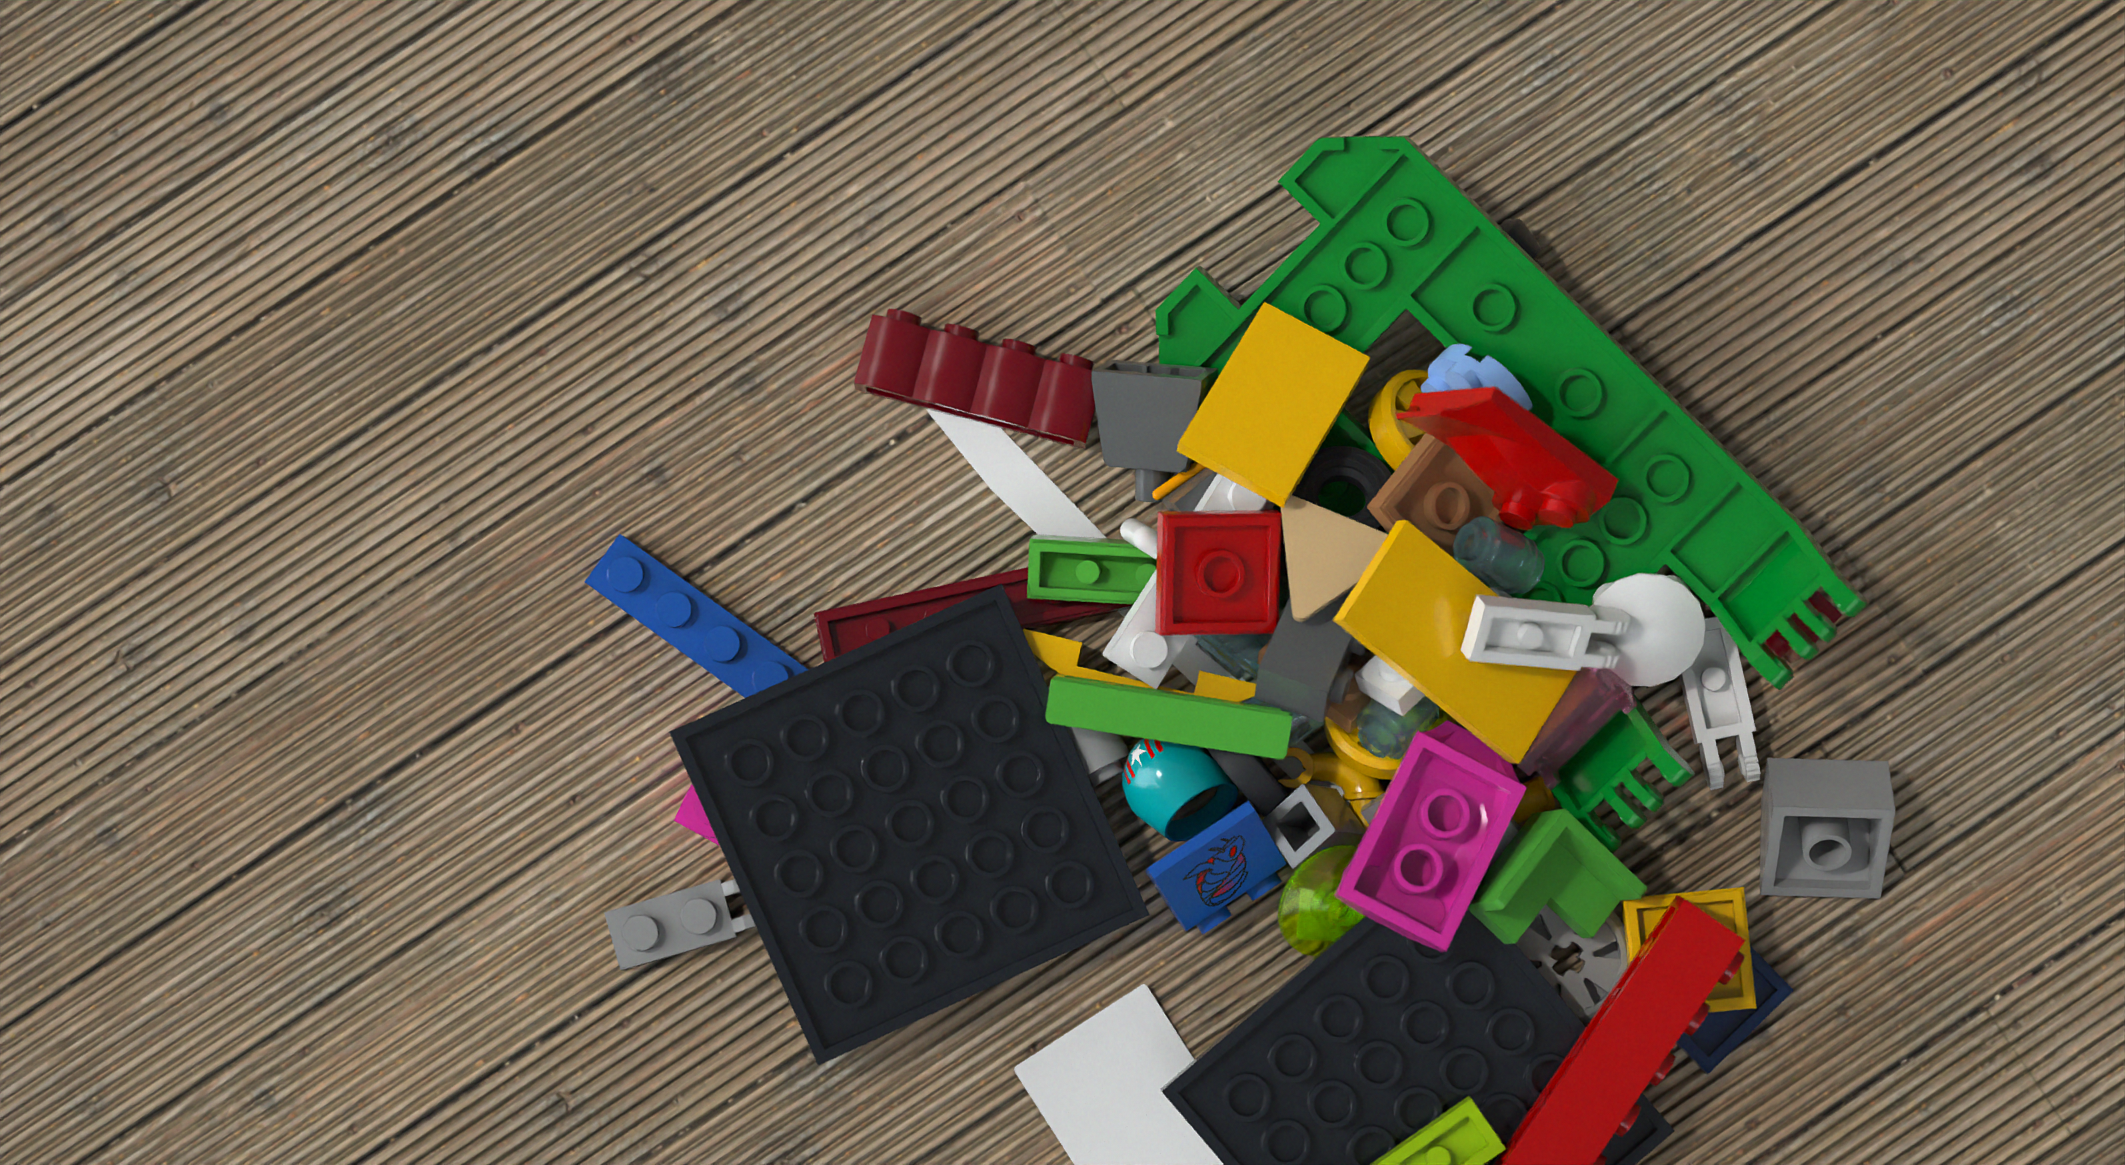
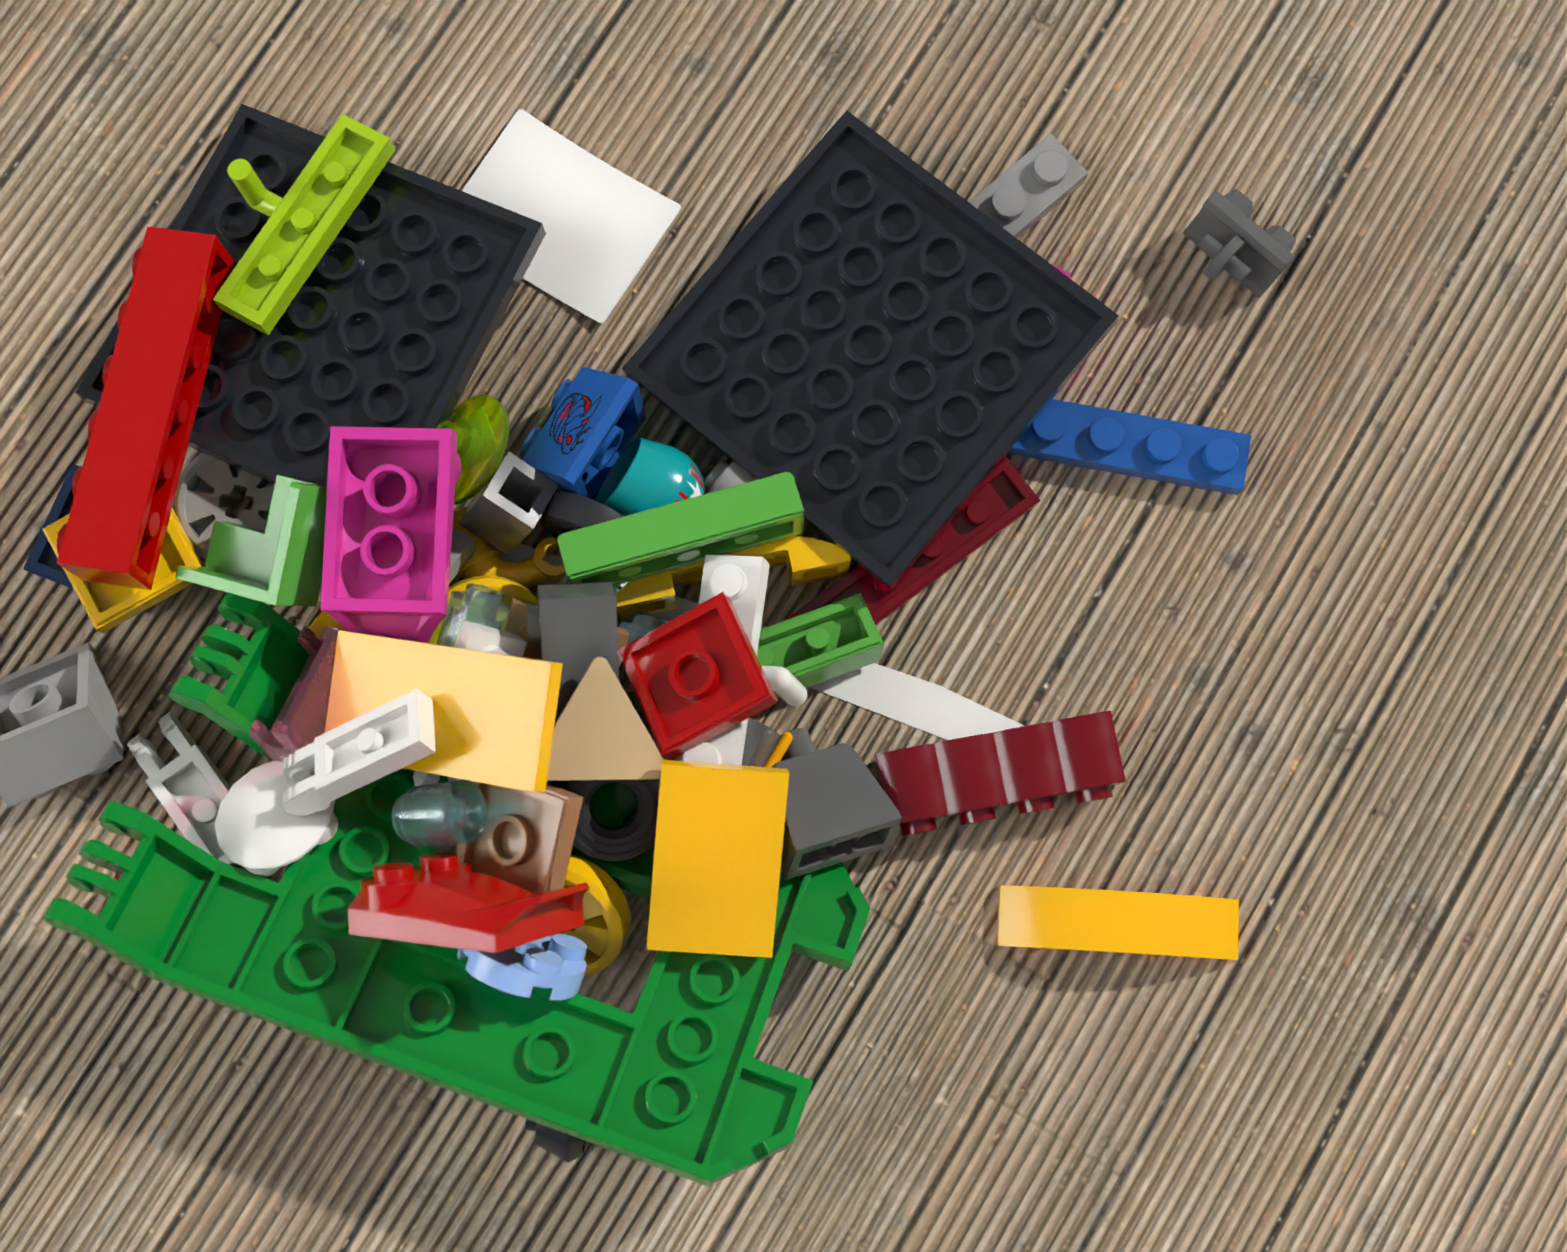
camera: 150 degrees right, 5 degrees down
(503, 767) = (1238, 243): none -> dark grey hips
(937, 198) = (1118, 922): none -> yellow slope

